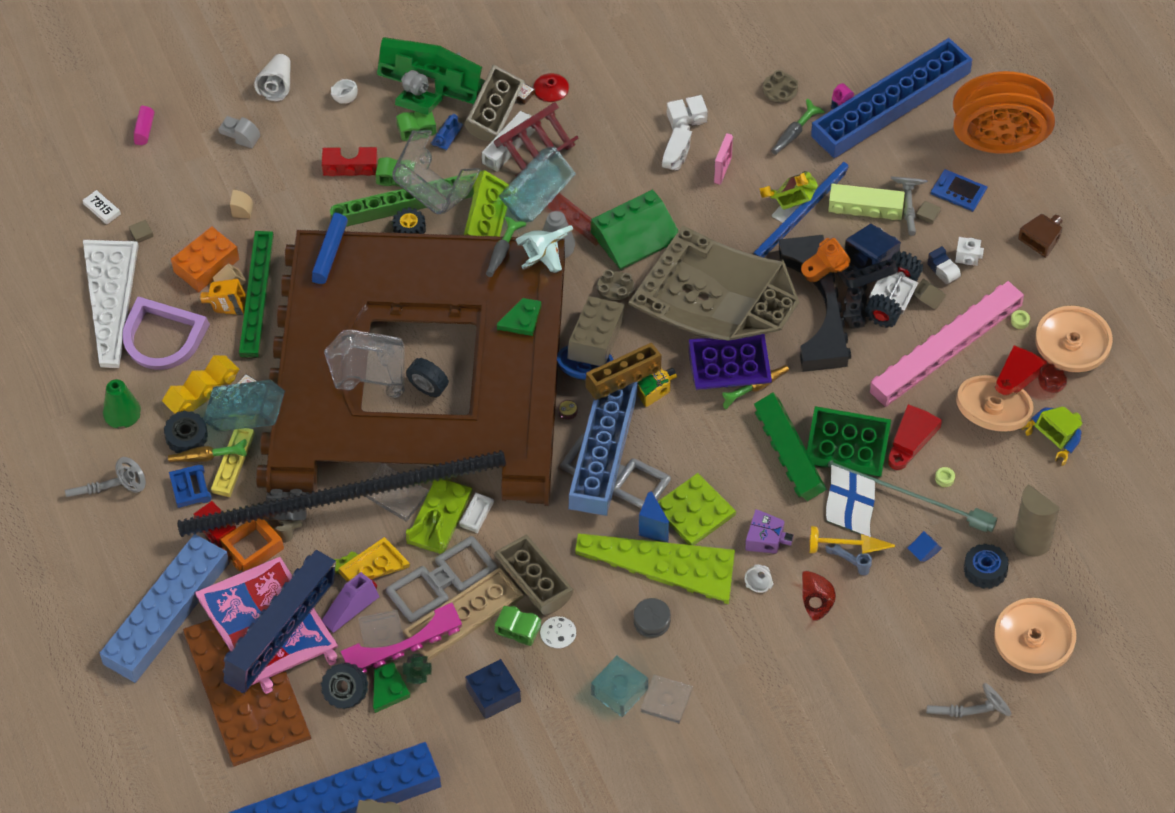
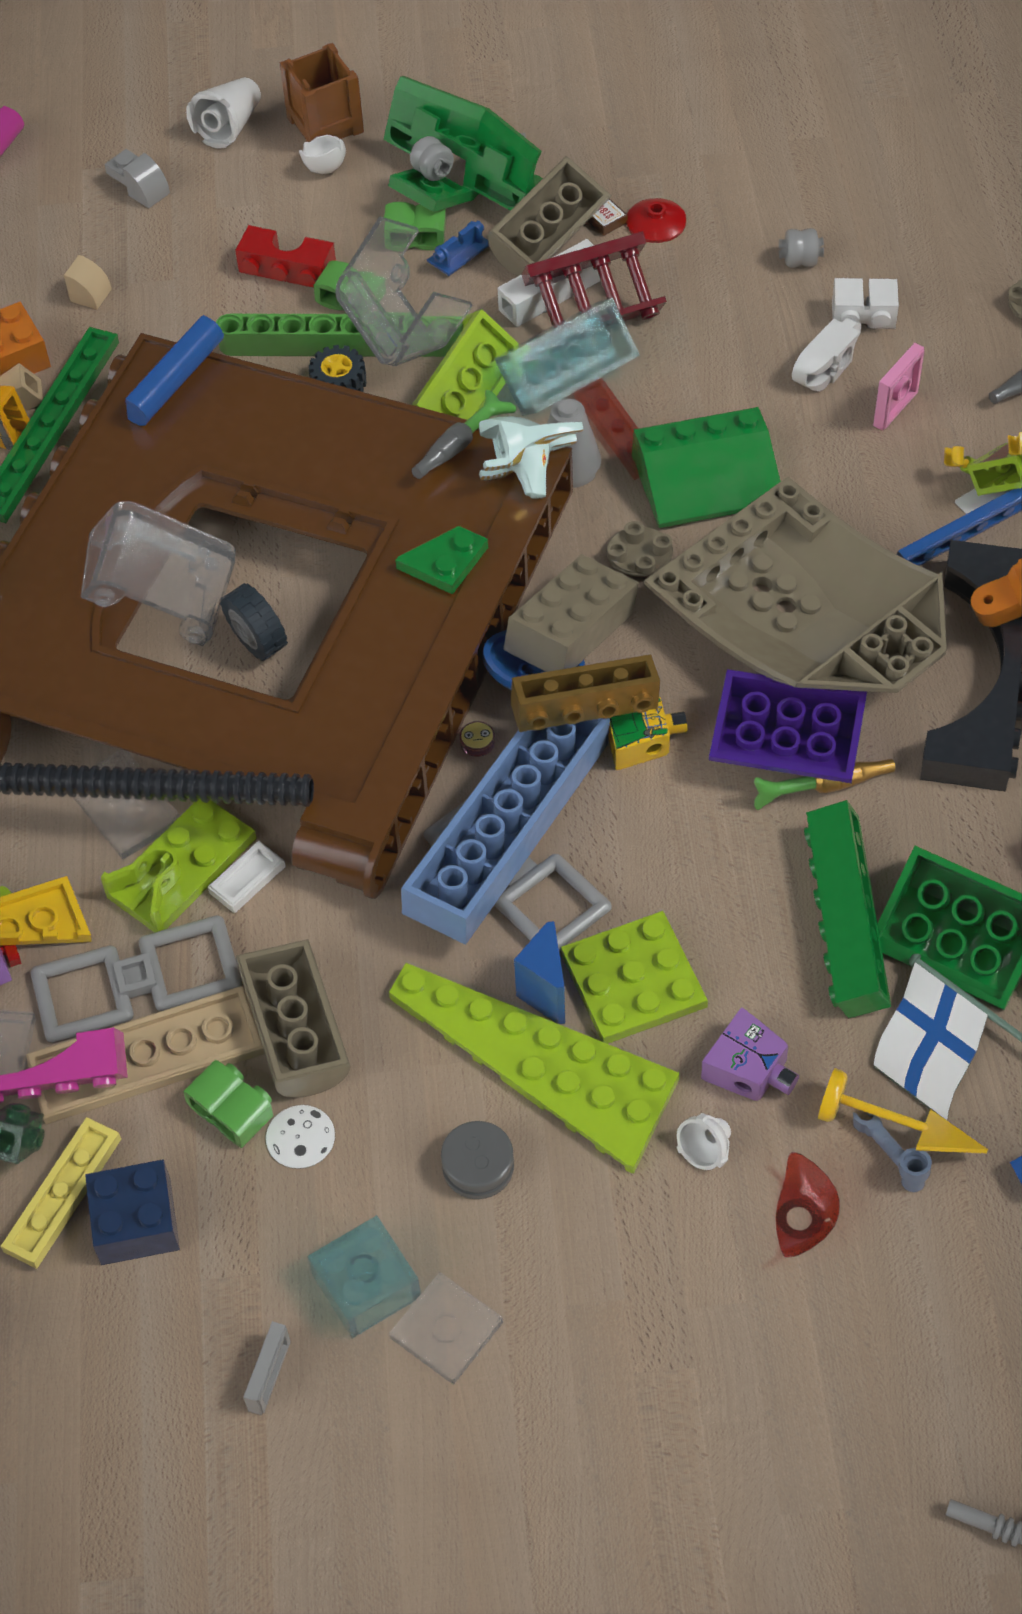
camera: 20 degrees right, 0 degrees up
(332, 56) = (322, 95): none -> dark orange container
(452, 690) = (60, 1193): none -> light yellow plate
(589, 726) = (267, 1368): none -> light grey tile
(640, 87) = (801, 247): none -> light grey piece

